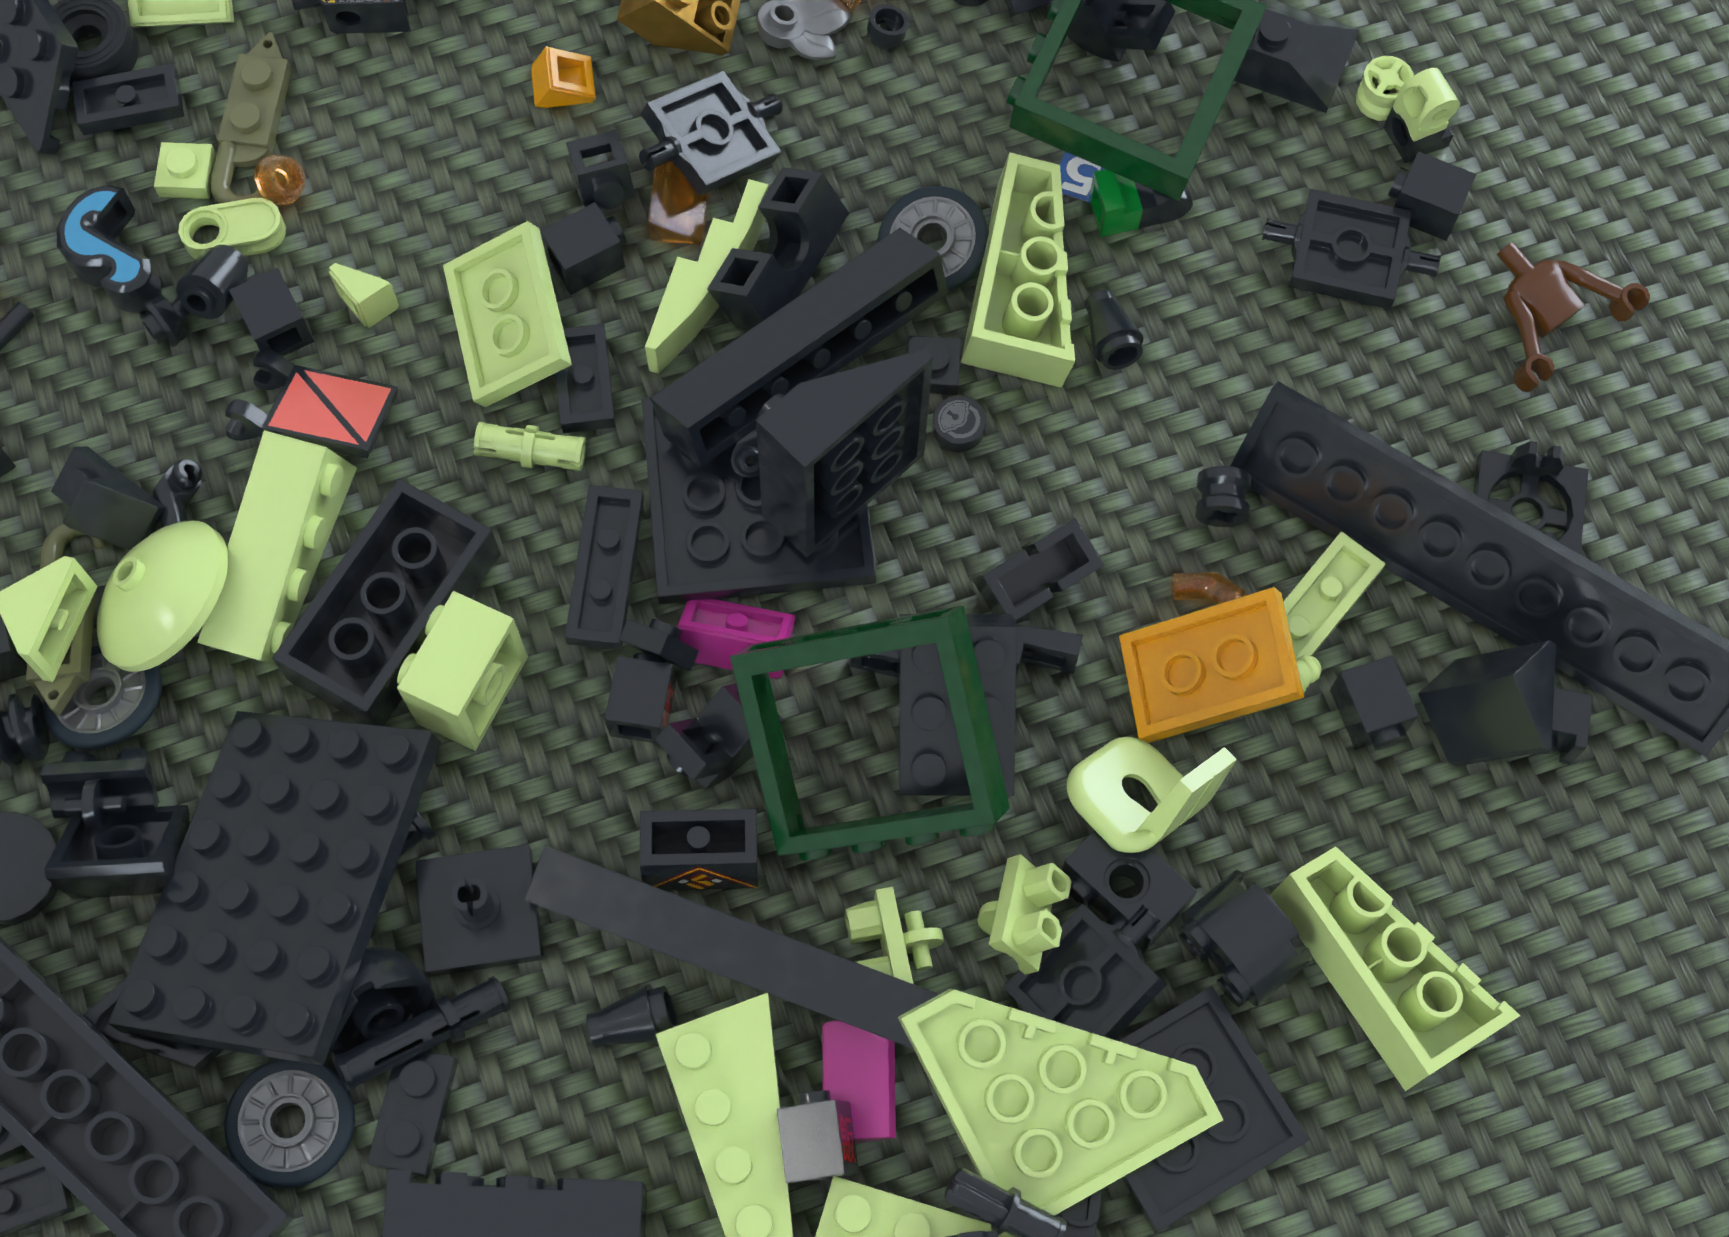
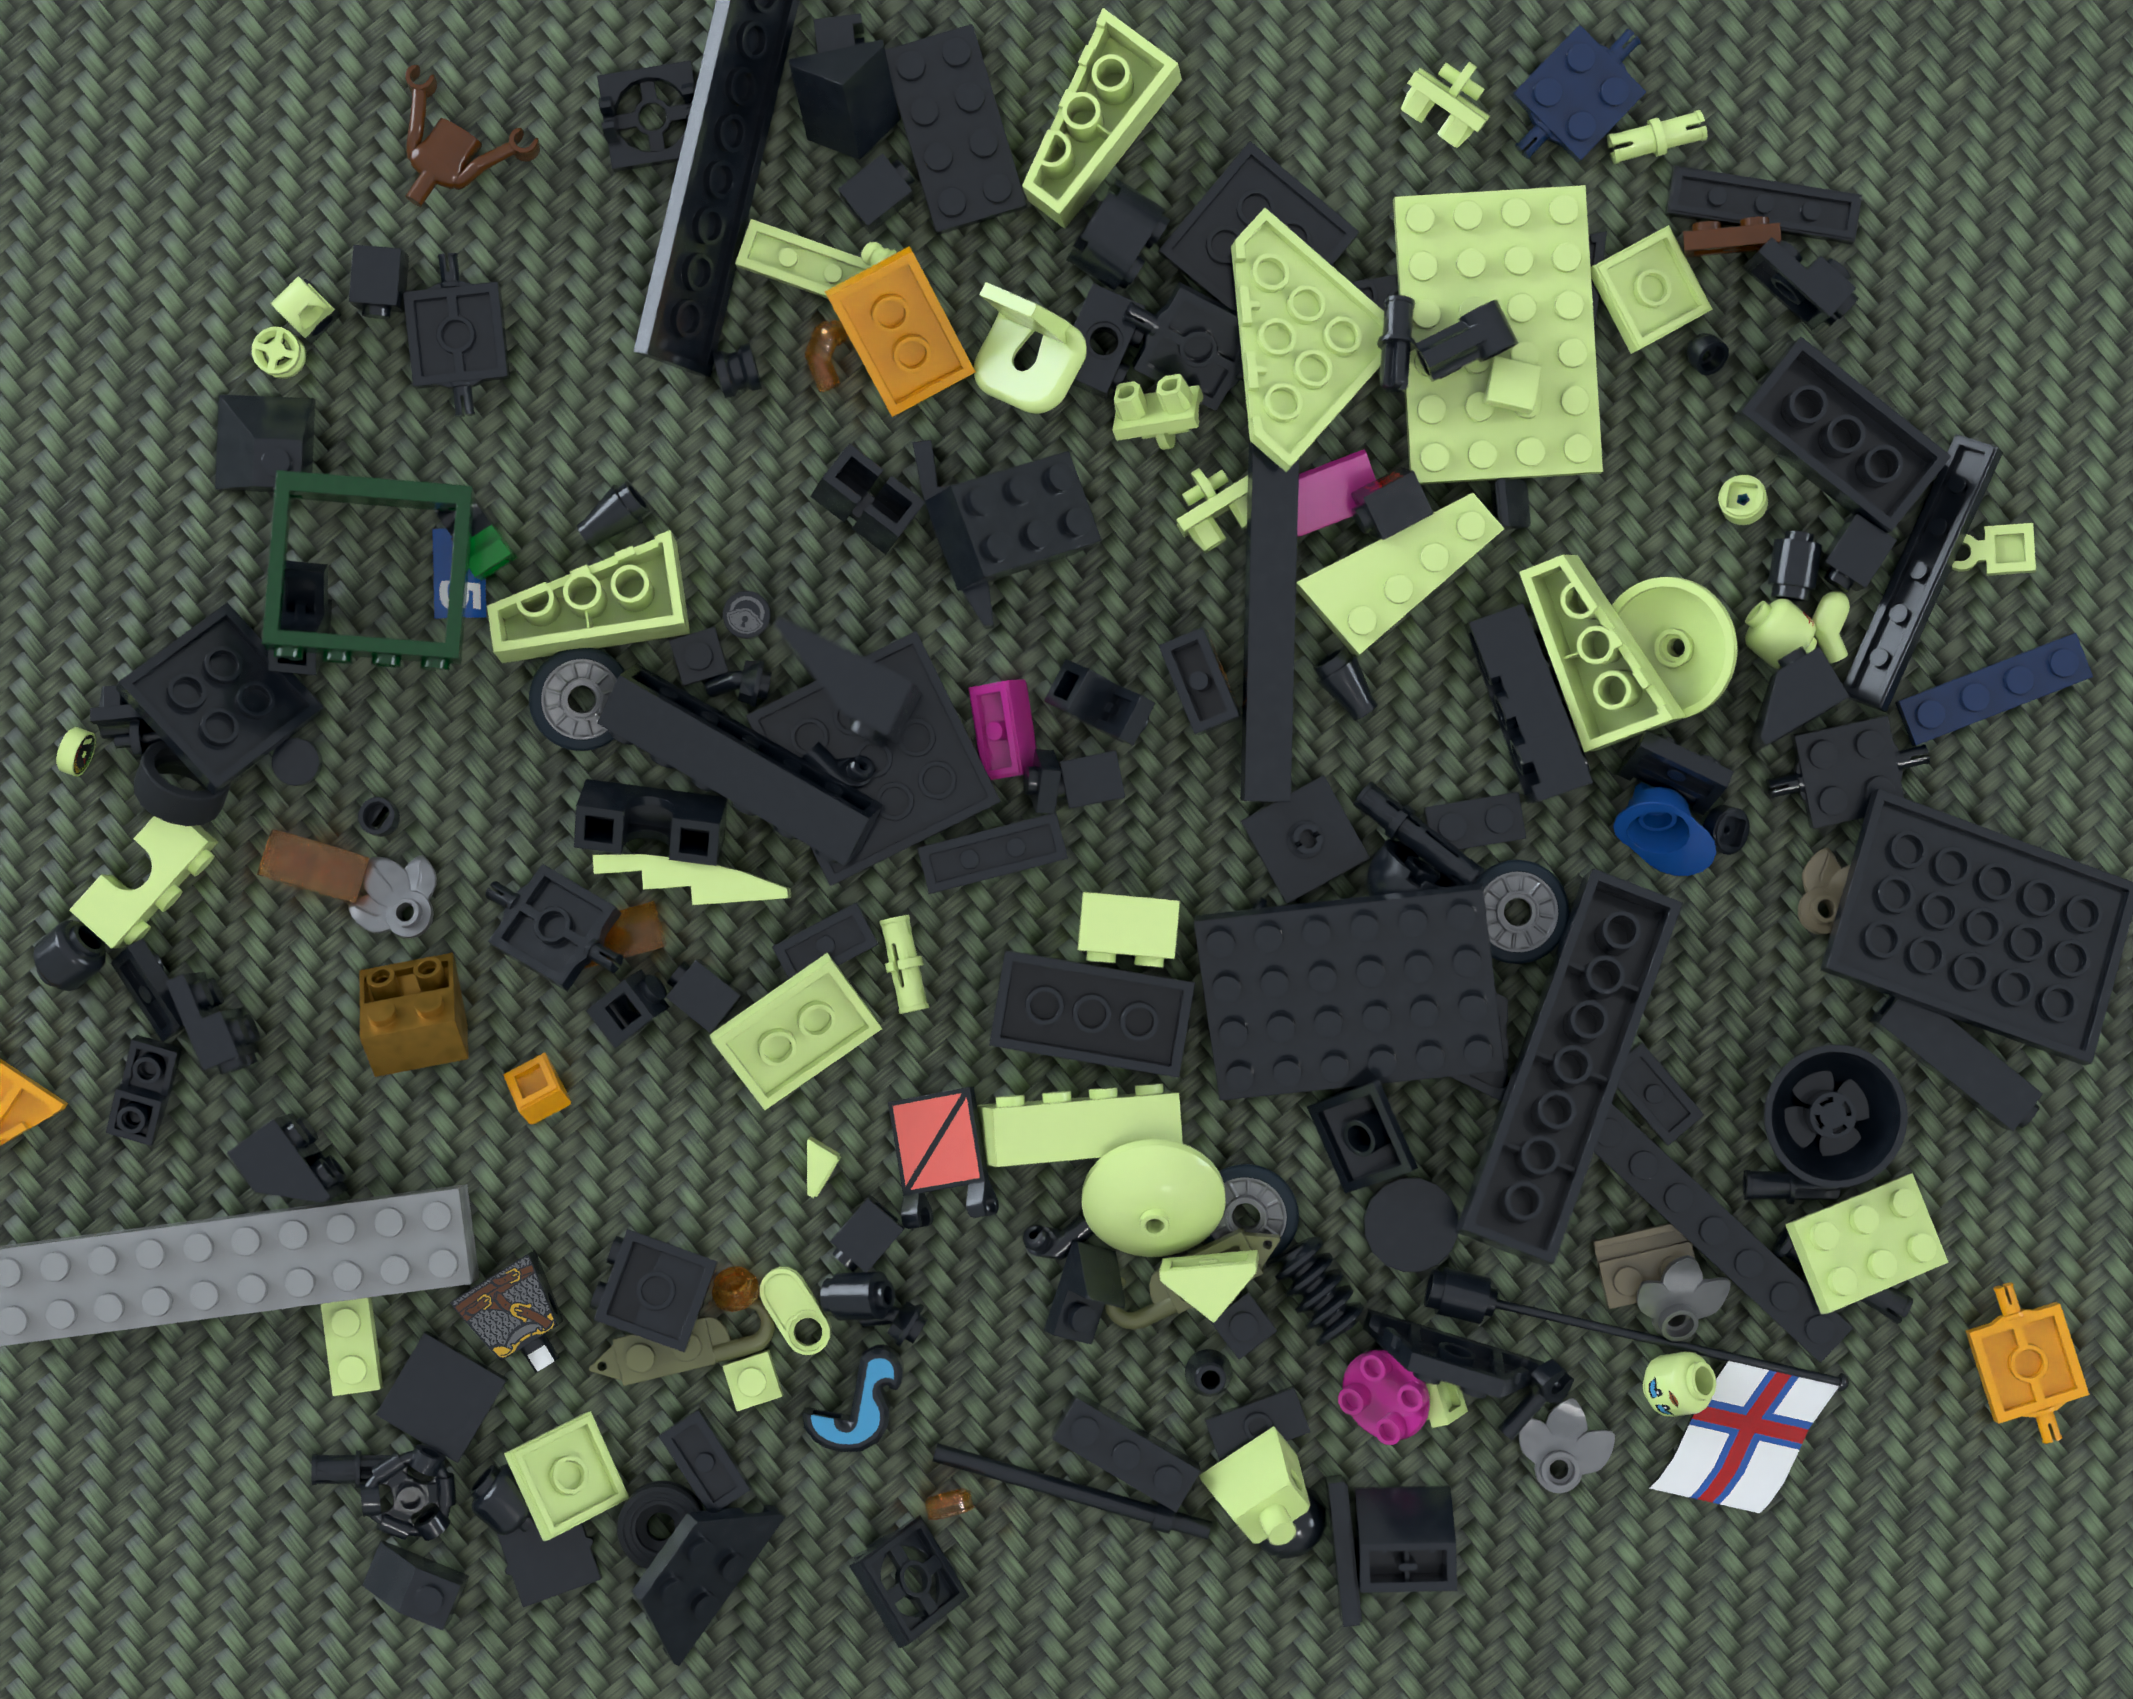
camera: 110 degrees left, 20 degrees up
(100, 788) = (1326, 1174): black hips -> none
(313, 100) = (653, 1289): none -> black plate
(970, 715) = (1011, 597): dark green window -> none
(1423, 815) = (954, 129): none -> black plate

